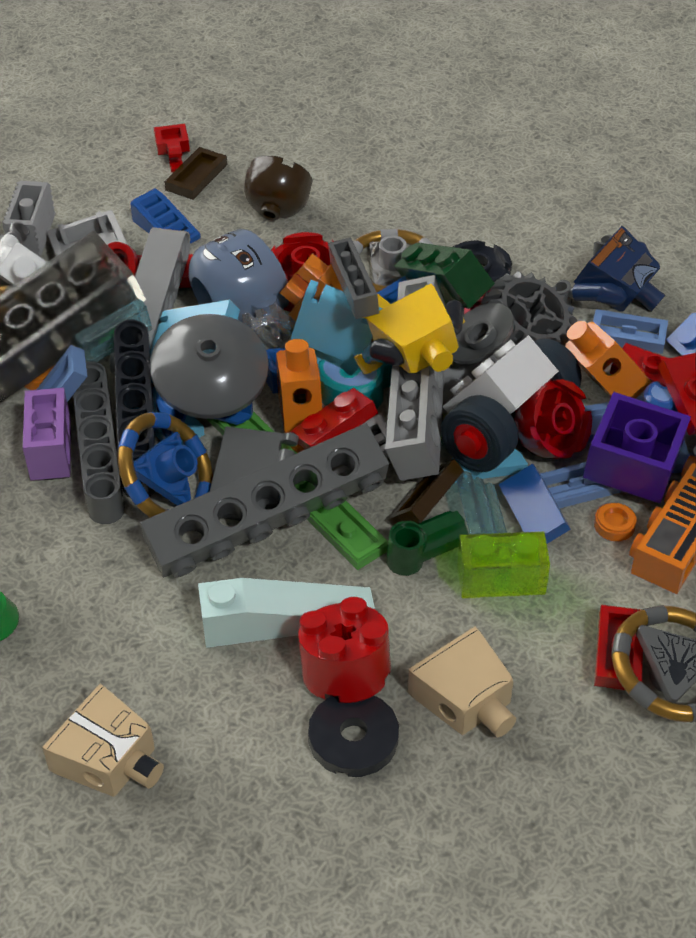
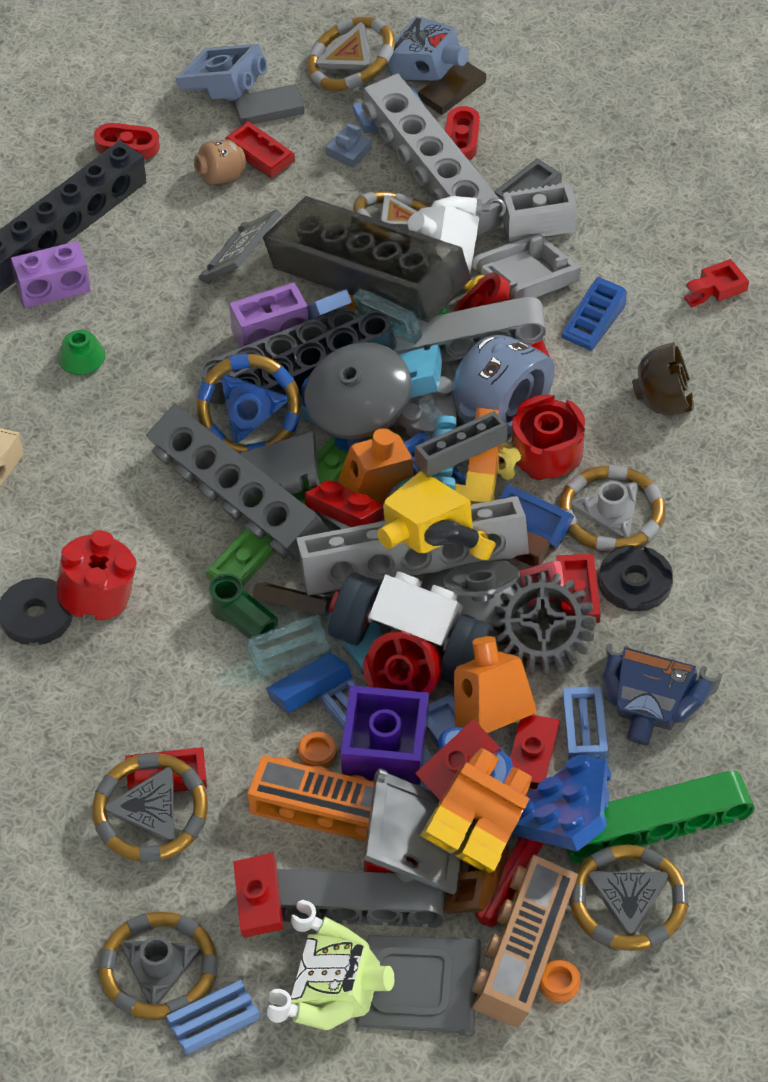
camera: 75 degrees right, 5 degrees up
(195, 173) = (685, 316): dark brown tile -> none
(264, 609) = (138, 530): light aqua slope -> none
(456, 271) = (560, 533): dark green brick -> none
(465, 685) = (94, 669): tan torso -> none
(503, 564) = (225, 668): clear neon green brick -> none

